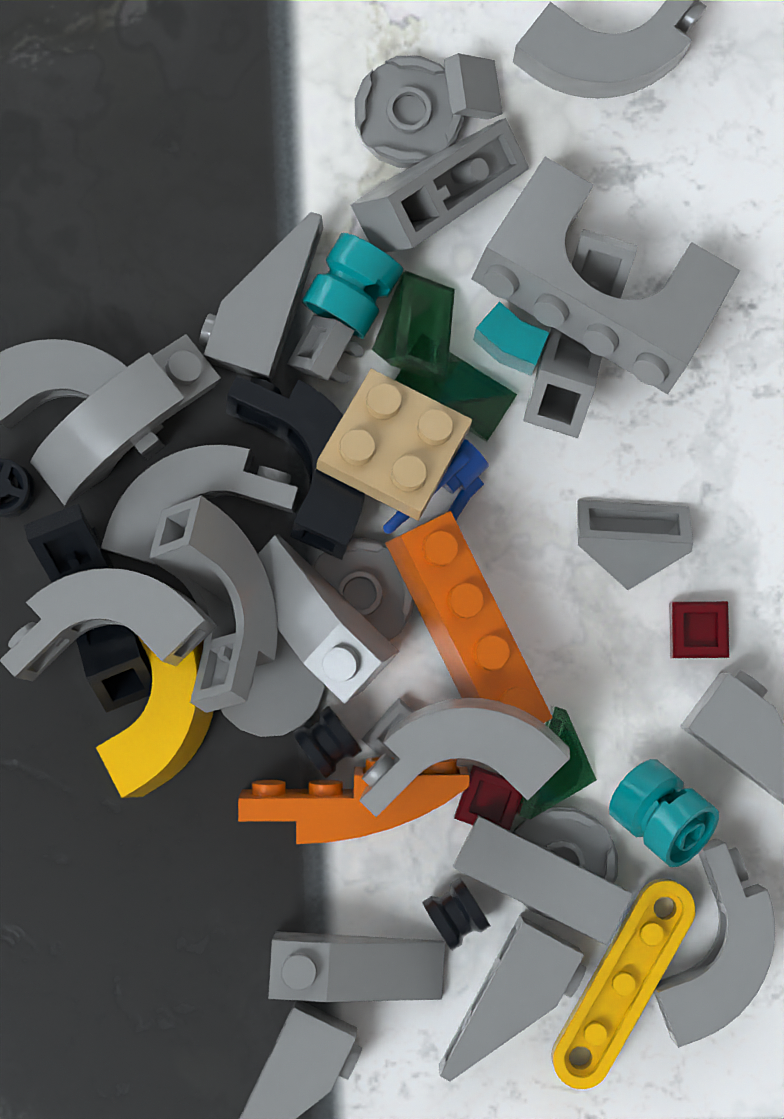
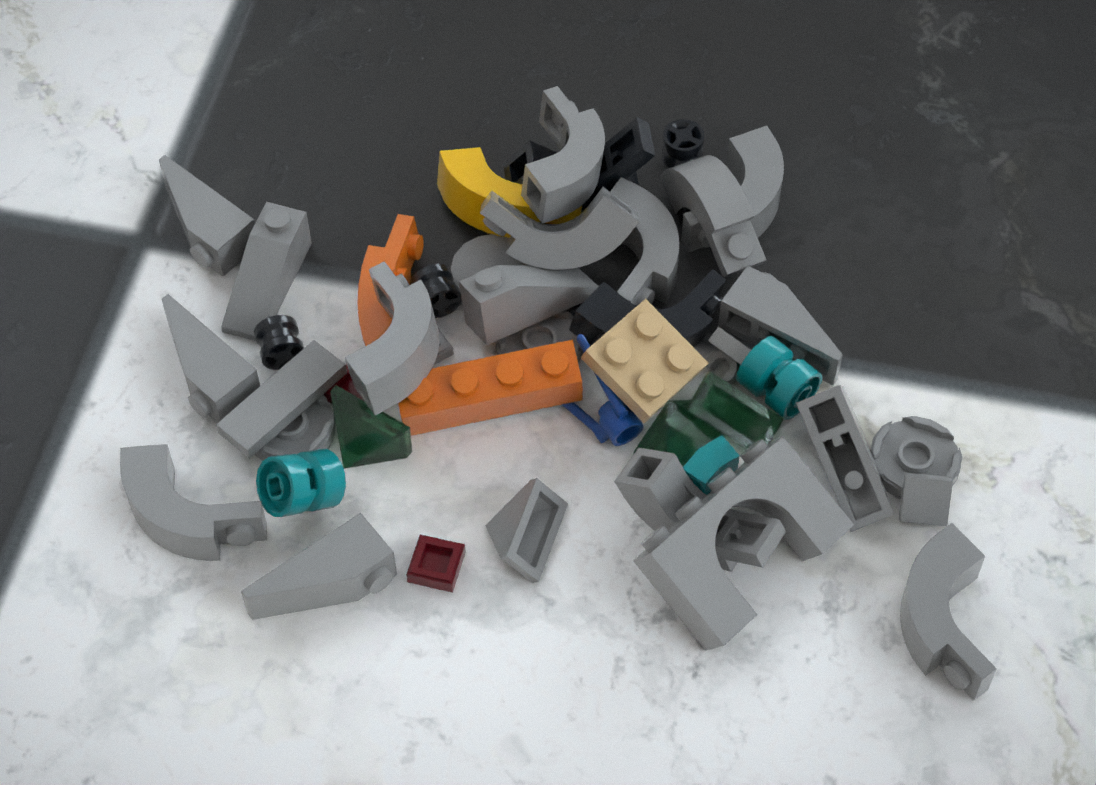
camera: 105 degrees right, 30 degrees down
(622, 983) = (191, 444): yellow plate -> none

